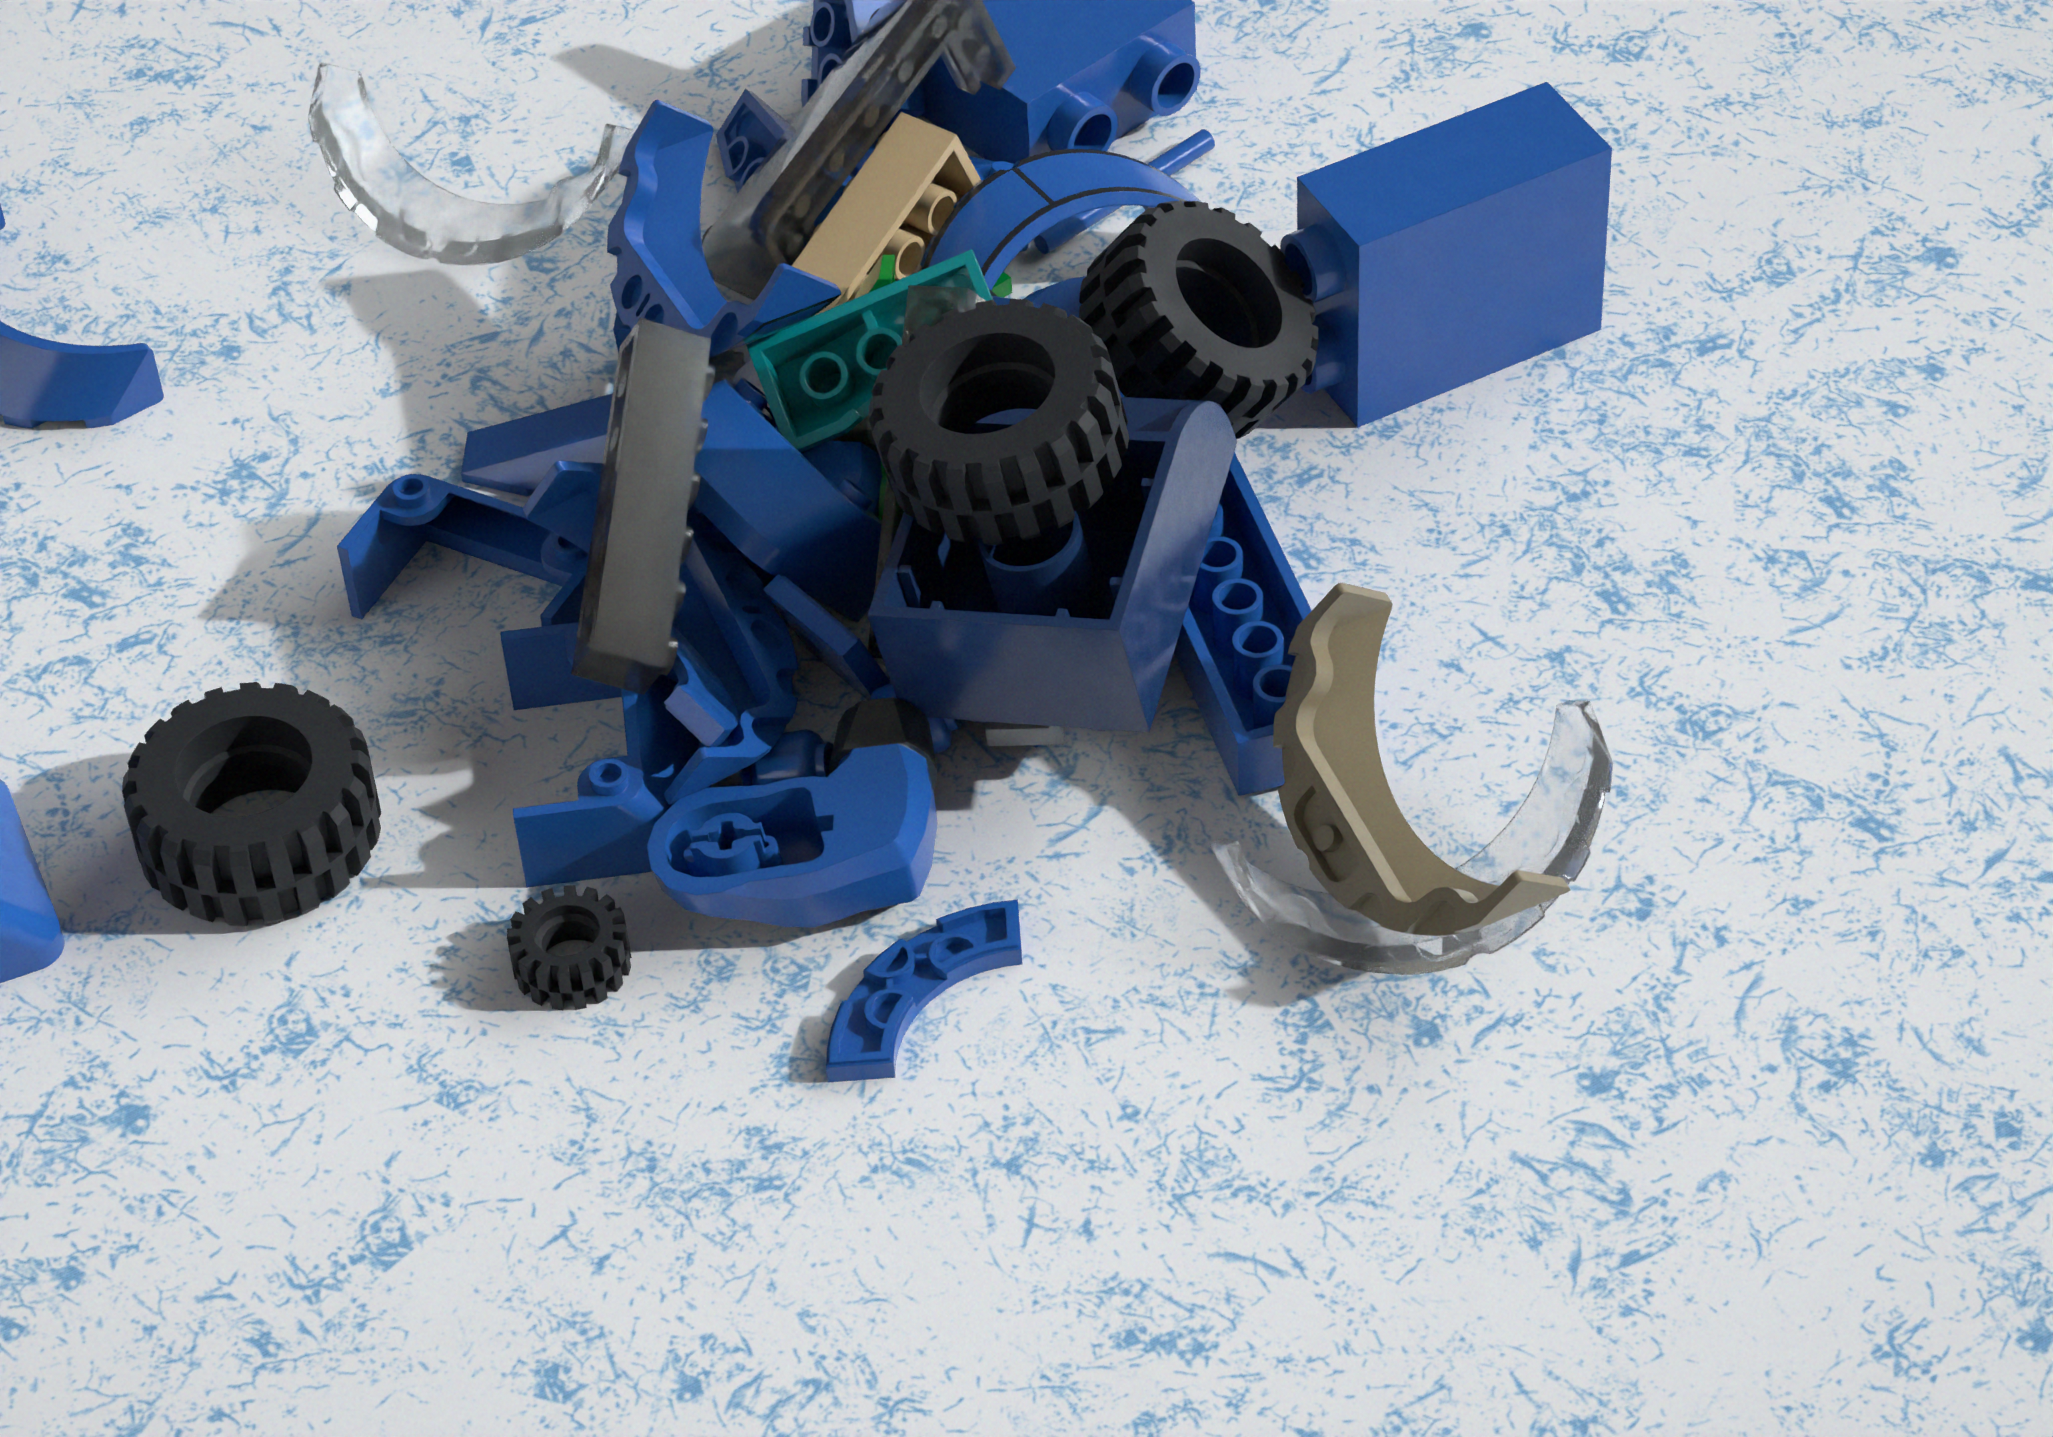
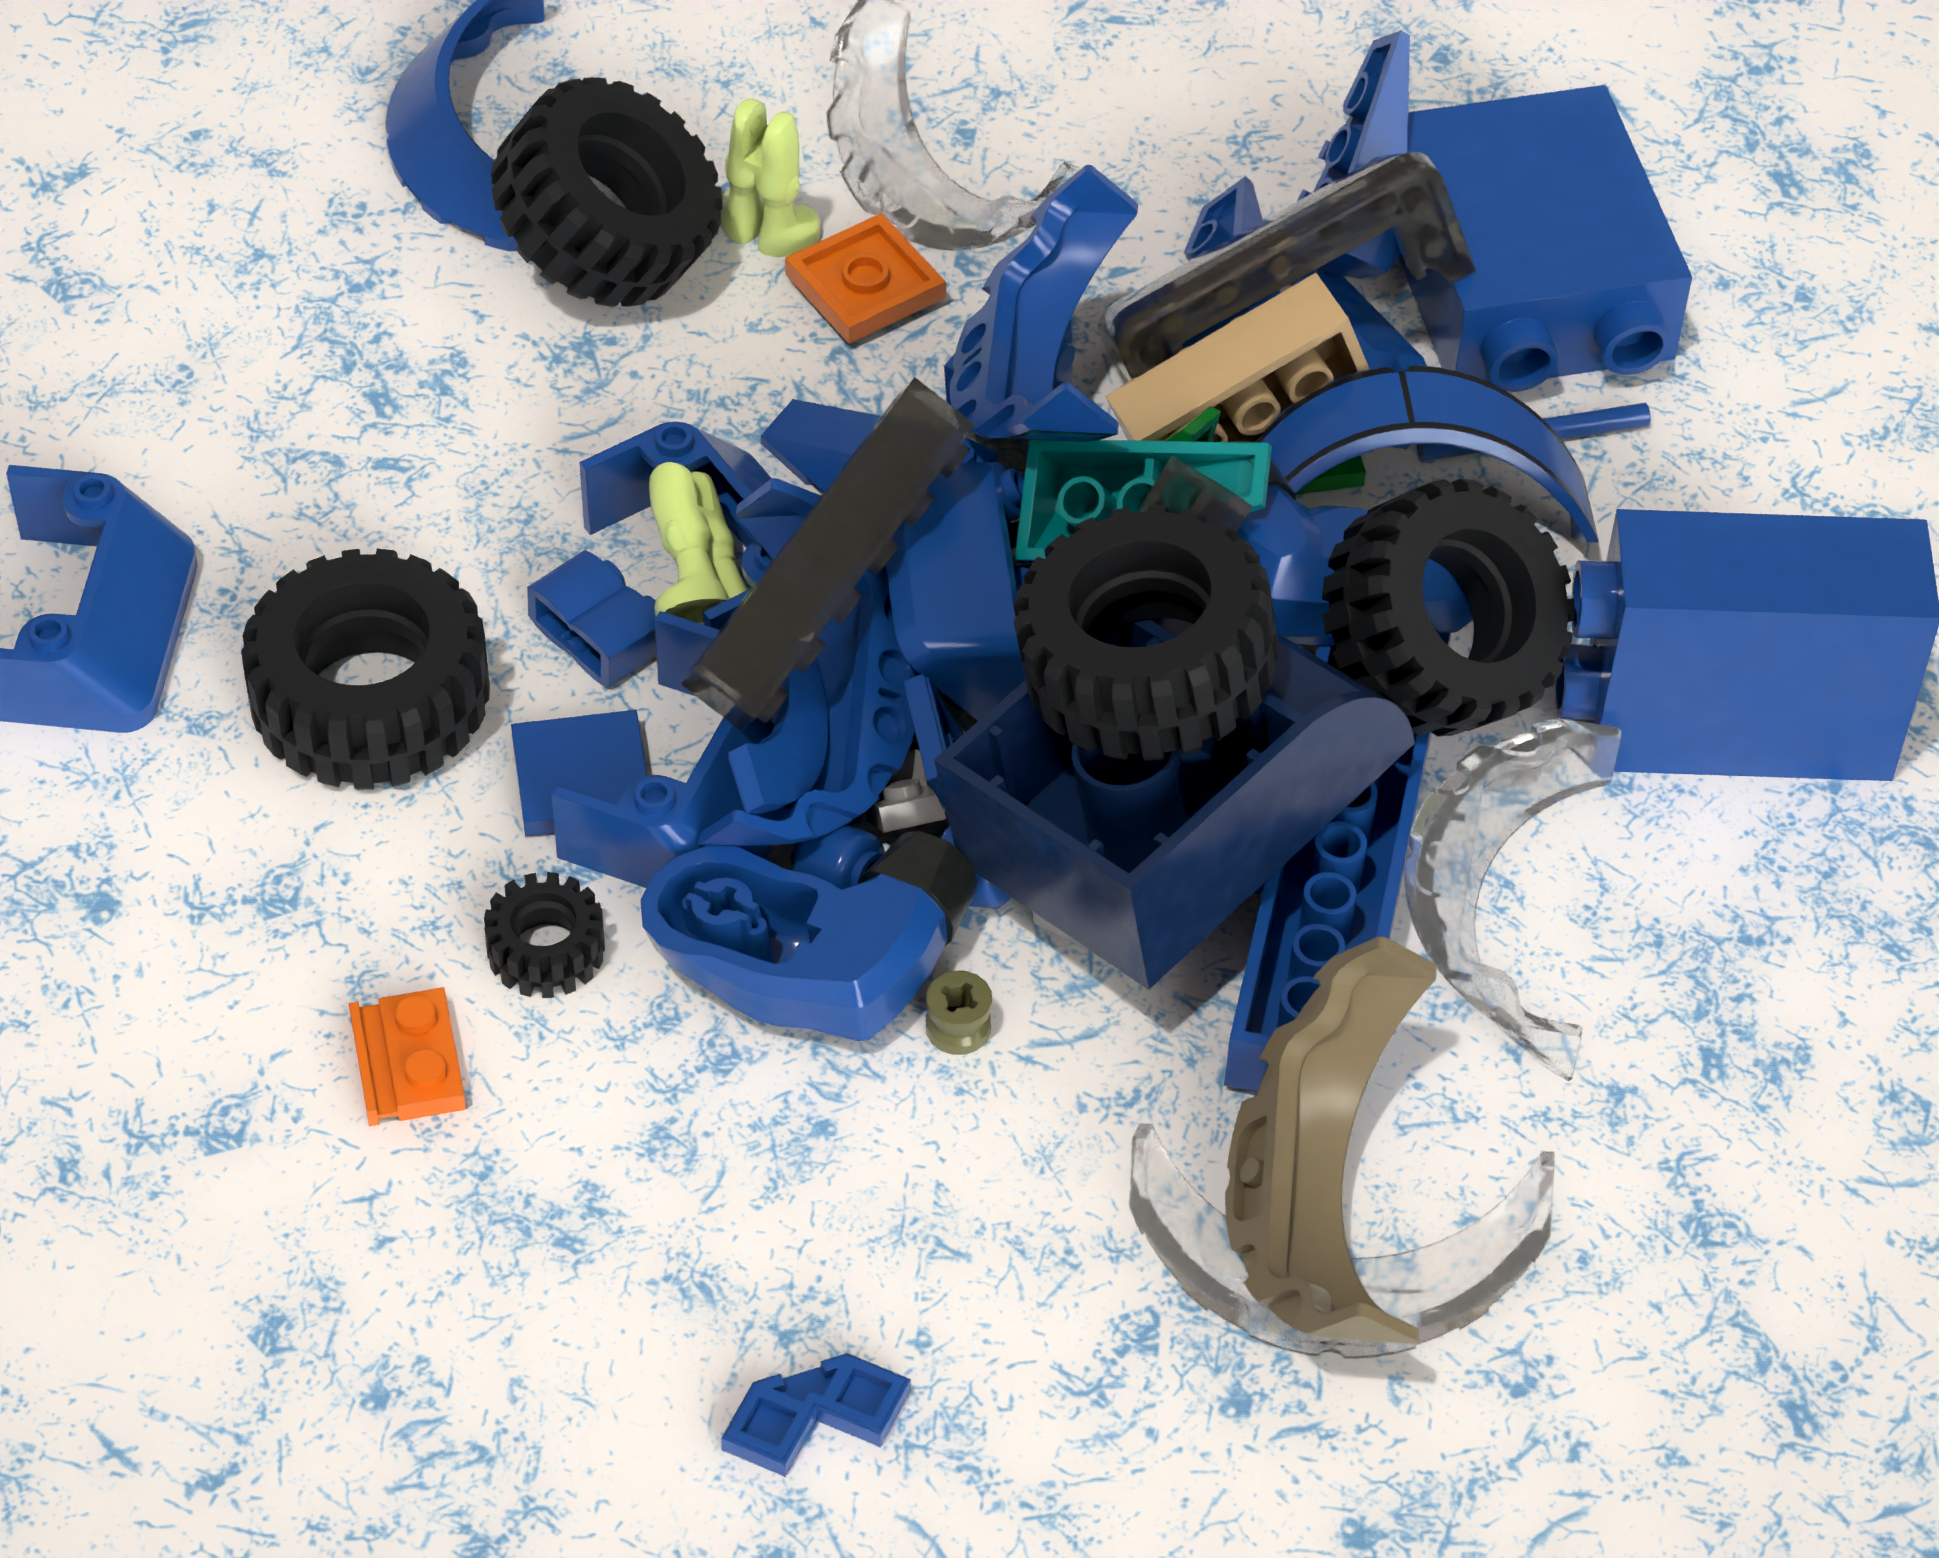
camera: 25 degrees right, 5 degrees up
(196, 322) = (578, 230): none -> black tyre
(331, 239) = (764, 184): none -> yellowish green piece
(427, 676) = (595, 617): none -> blue brick
(464, 308) = (865, 278): none -> orange plate
(477, 800) = (581, 753): none -> blue tile
(481, 562) = (698, 540): none -> yellowish green piece
(514, 1103) = (407, 1056): none -> orange plate
(818, 695) = (906, 798): none -> light grey bracket
(908, 977) = (813, 1112): blue tile -> none
(978, 841) = (966, 1027): none -> olive wheel
(1092, 1183) = (839, 1393): none -> blue tile
(1296, 496) = (1458, 839): none -> clear windscreen

